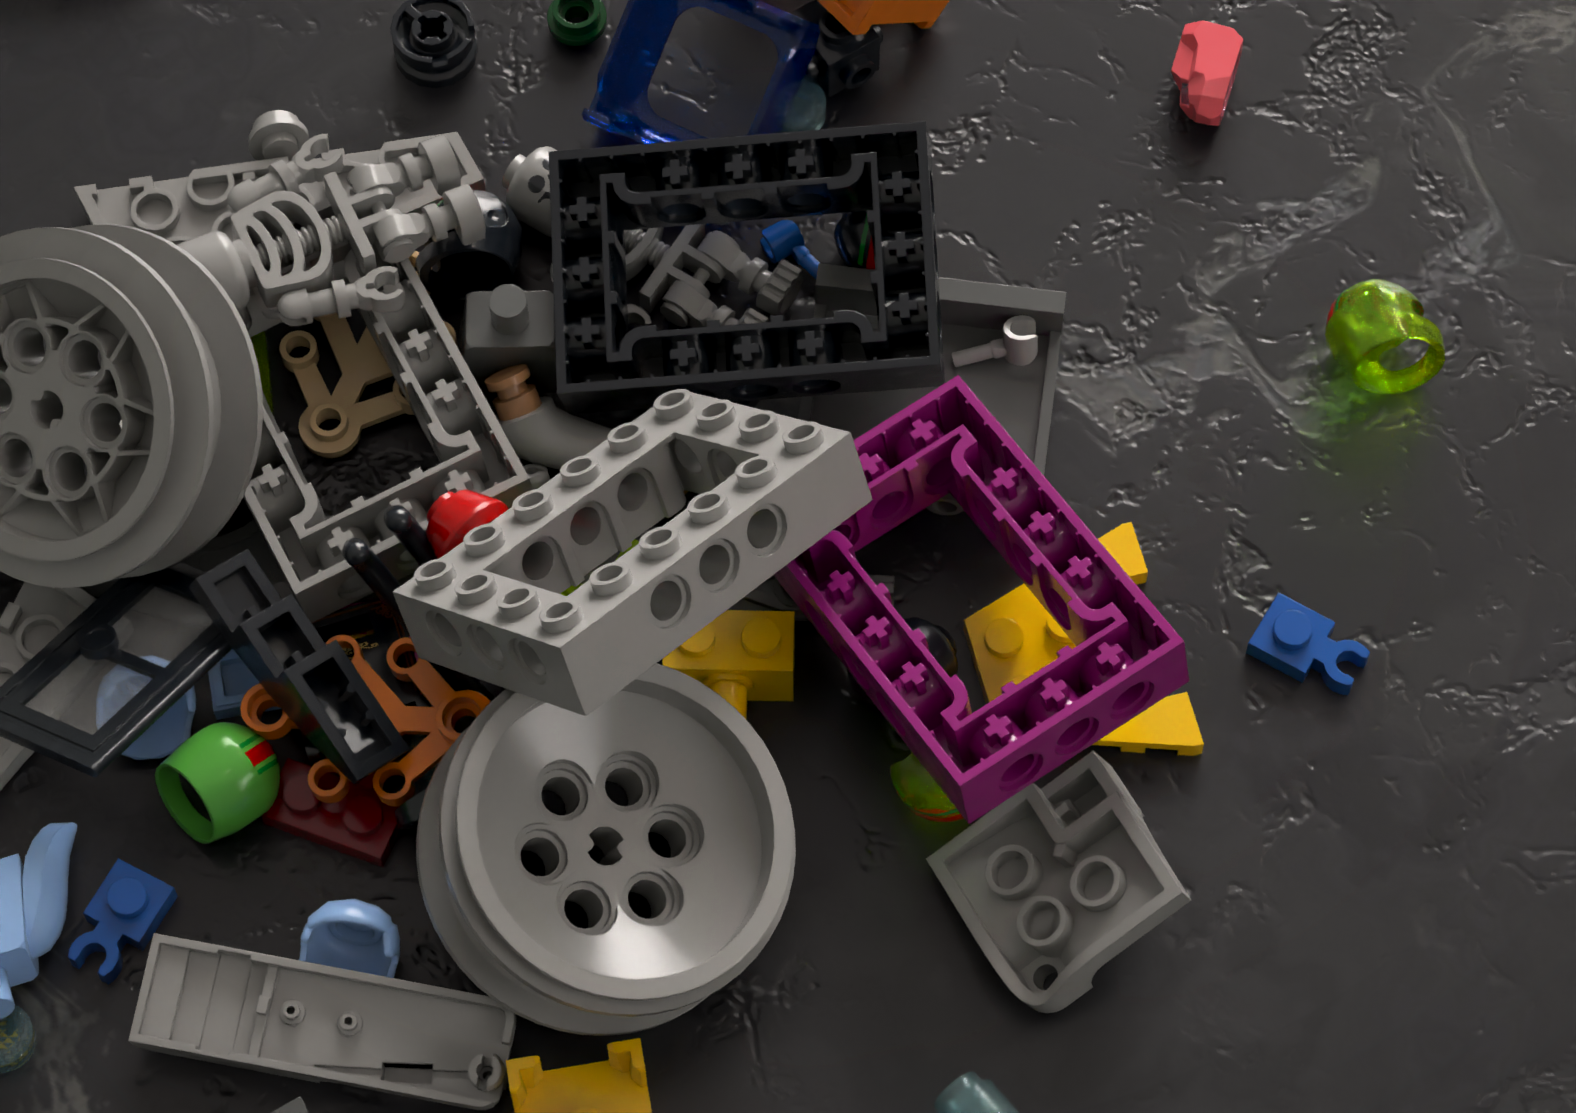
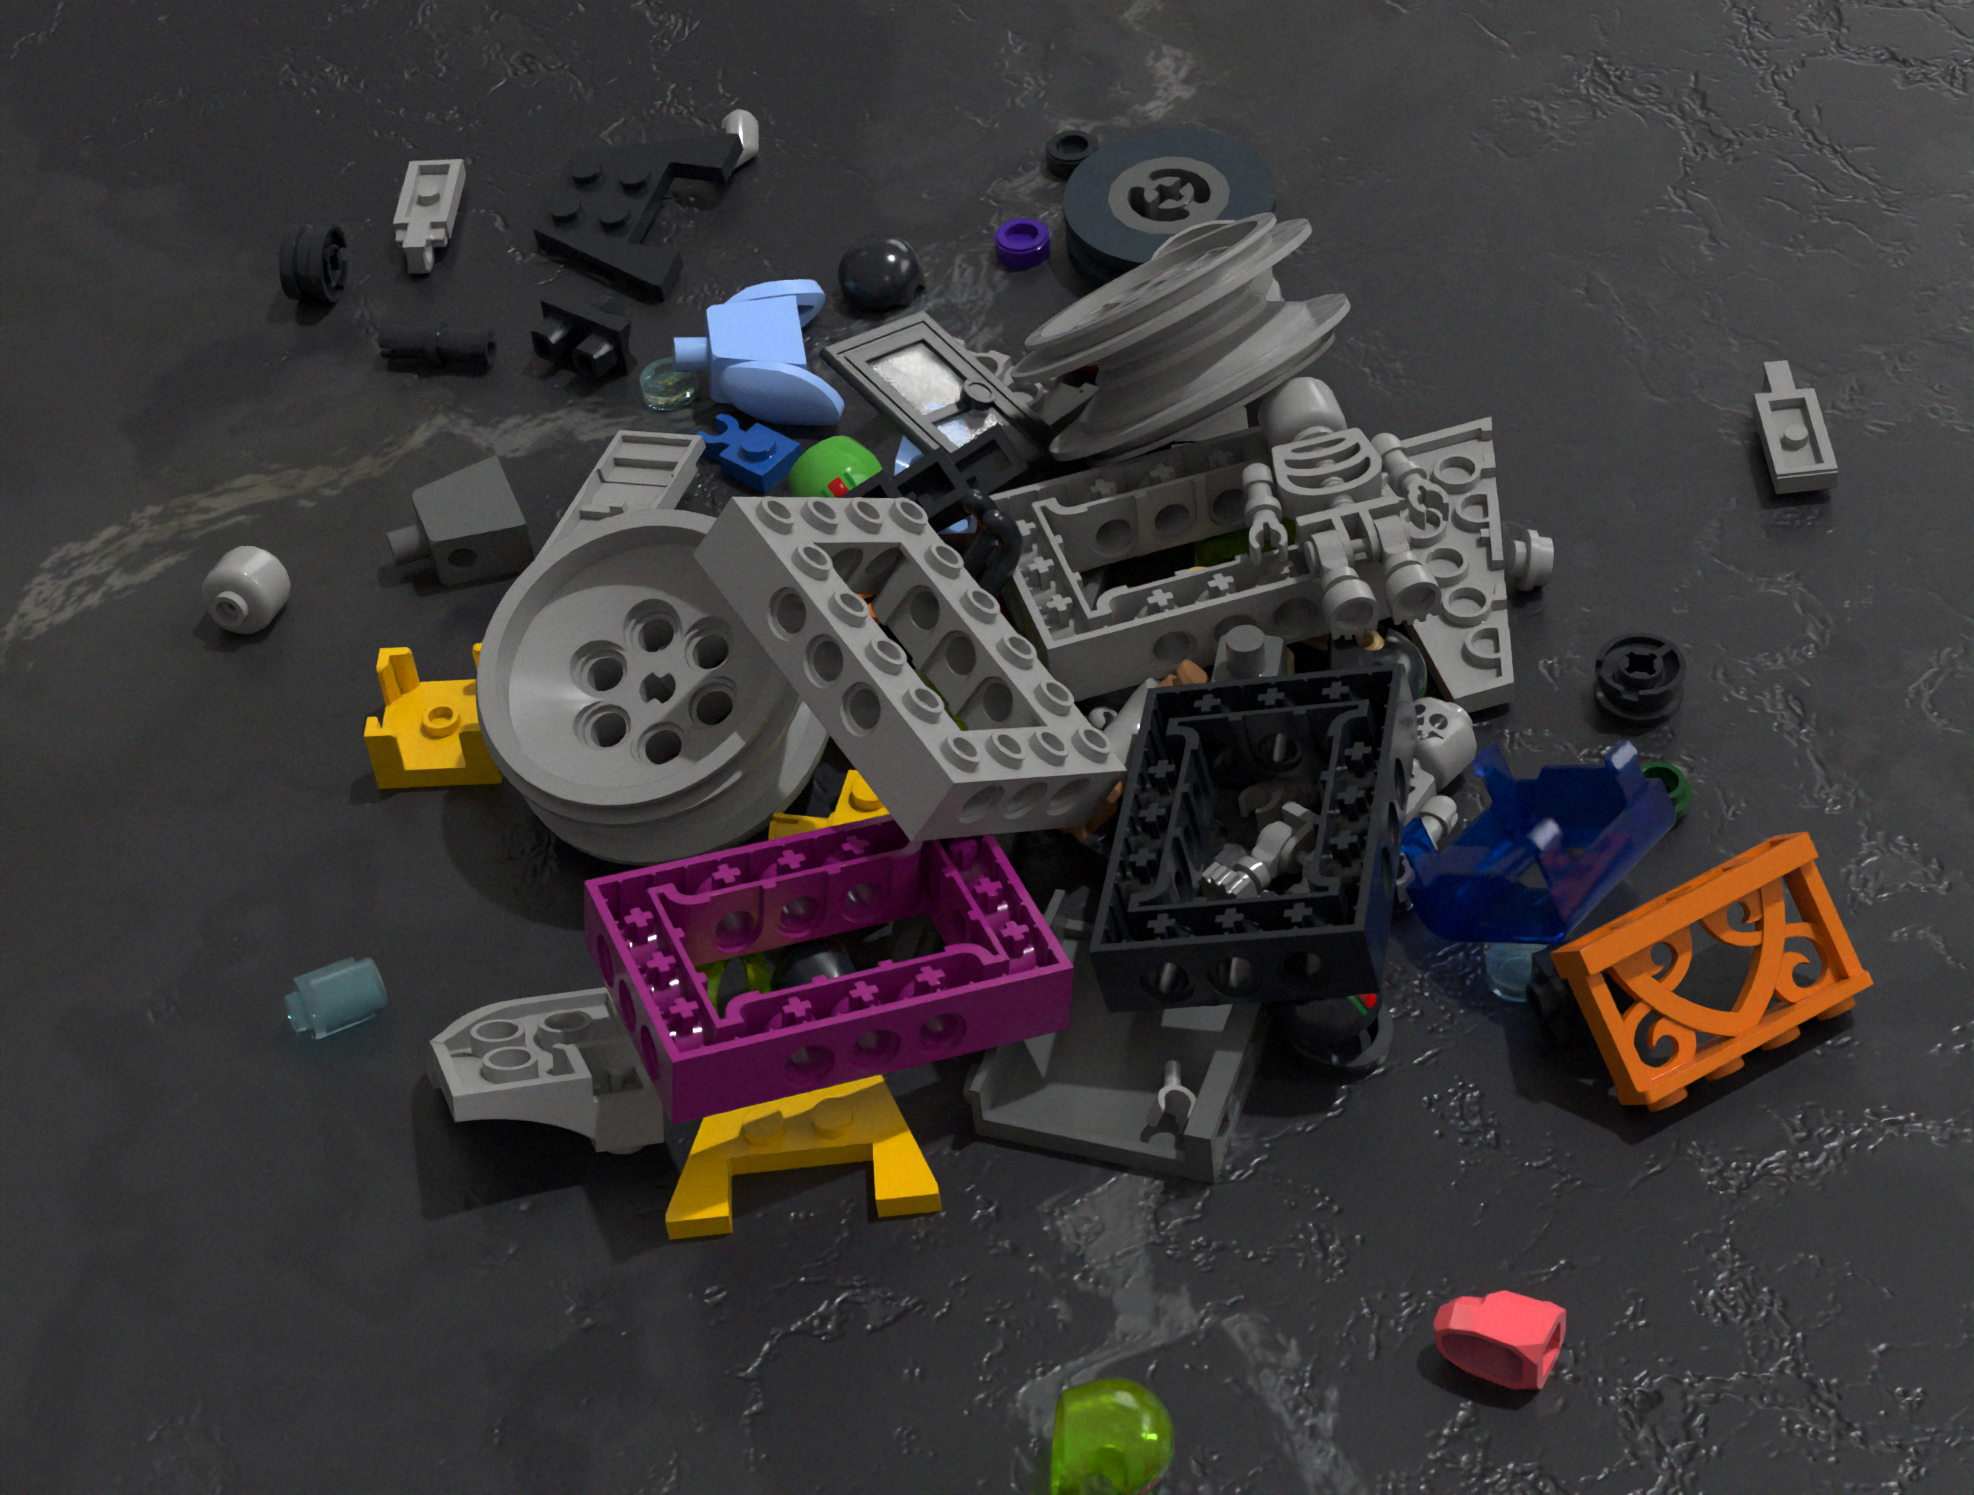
camera: 105 degrees right, 20 degrees down
(456, 515) = (1006, 581): red cone -> none
(1299, 639) = (761, 1332): blue plate -> none

